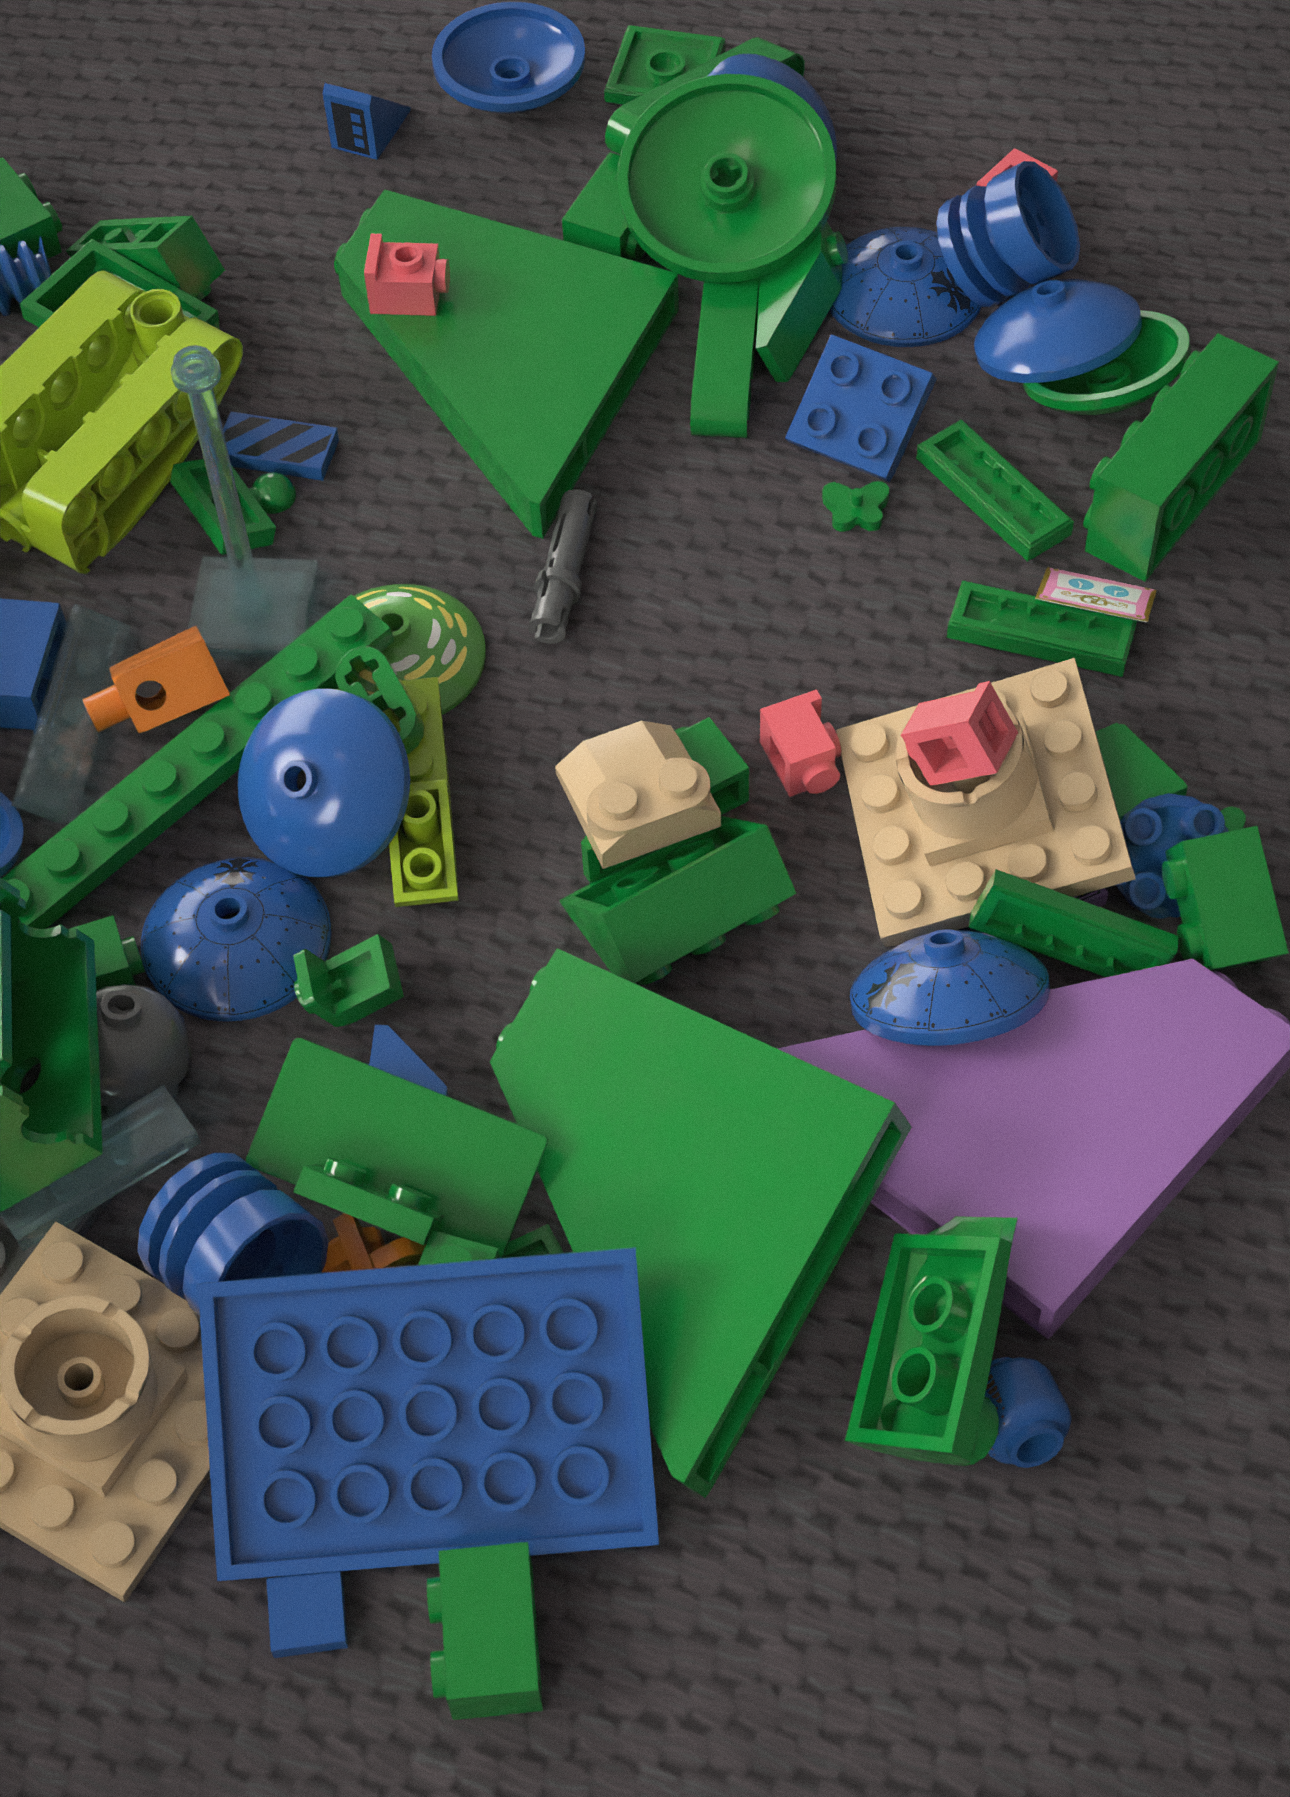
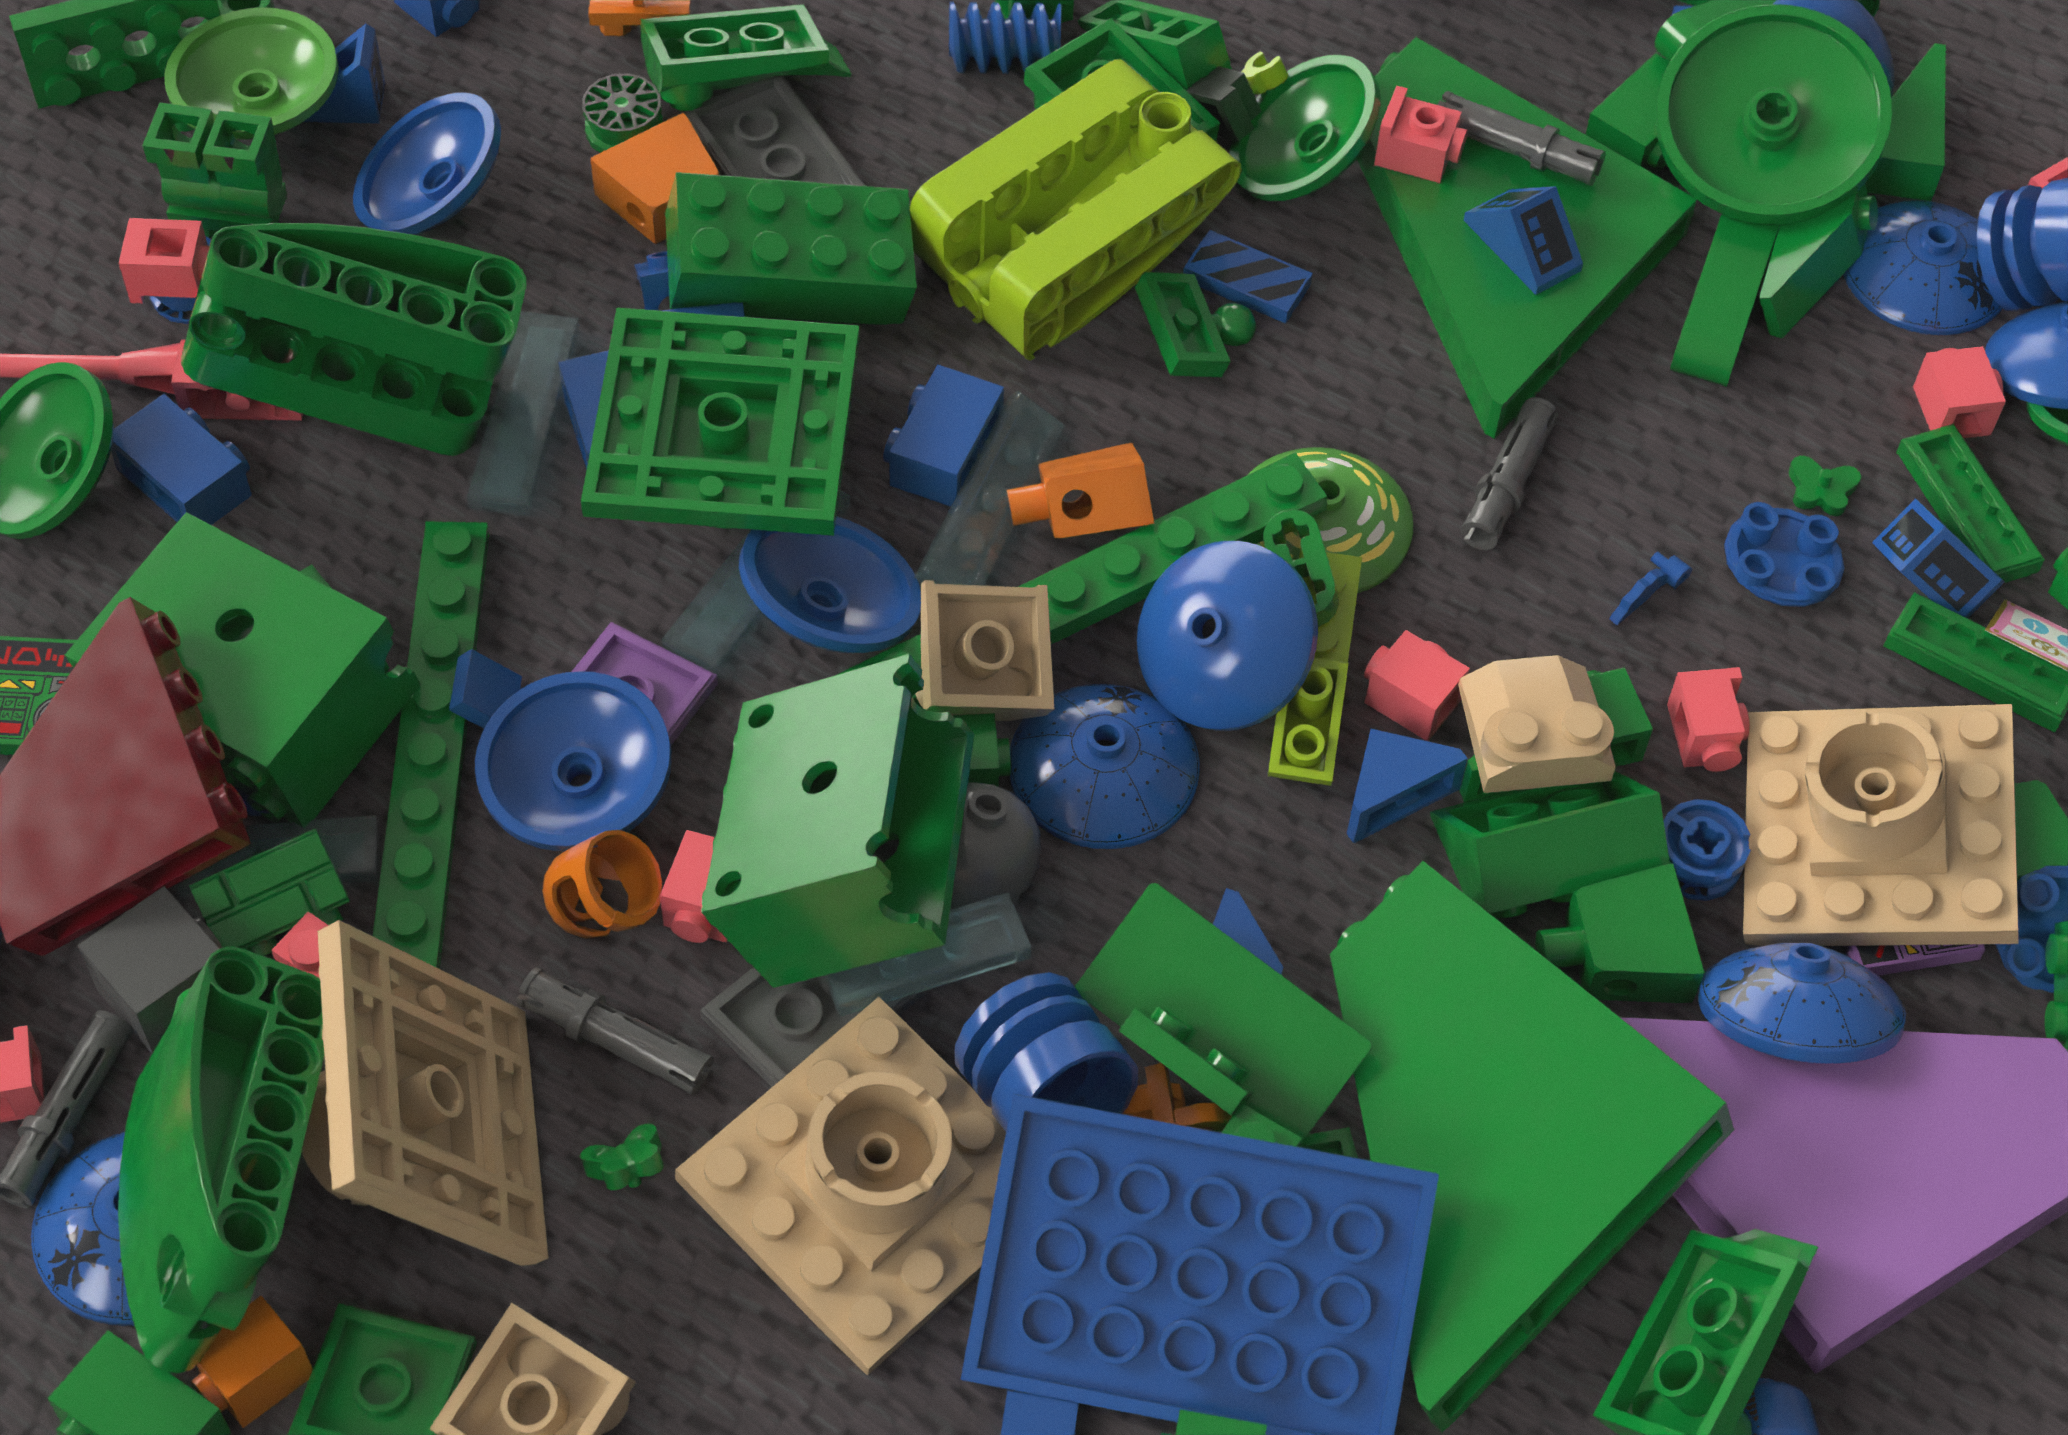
camera: 10 degrees right, 0 degrees up
(89, 857) = (986, 650): none -> tan slope
(223, 281) = (1231, 93): none -> pearl dark grey piece
(240, 602) = (1181, 429): clear light blue tile -> none
(299, 296) = (1308, 128): none -> green dish
(348, 983) = (1207, 839): green bracket -> none
(515, 258) = (1530, 142): none -> dark grey pin
(516, 783) = (1414, 684): none -> coral brick
(522, 877) = (1400, 779): none -> blue slope
(529, 342) = (1529, 235): none -> blue slope
(736, 619) = (1671, 571): none -> blue piece
(773, 972) = (1629, 939): none -> green torso
(820, 845) = (1712, 826): none -> blue wheel
(836, 577) = (1784, 555): none -> blue dish
(861, 408) = (1852, 386): blue plate -> none
(864, 174) = (1917, 133): none -> green slope
(960, 735) = (1878, 756): coral brick -> none
(963, 389) = (1960, 391): none -> coral brick
(977, 547) = (1937, 561): none -> slope
(1068, 928) = (1938, 975): green plate -> none

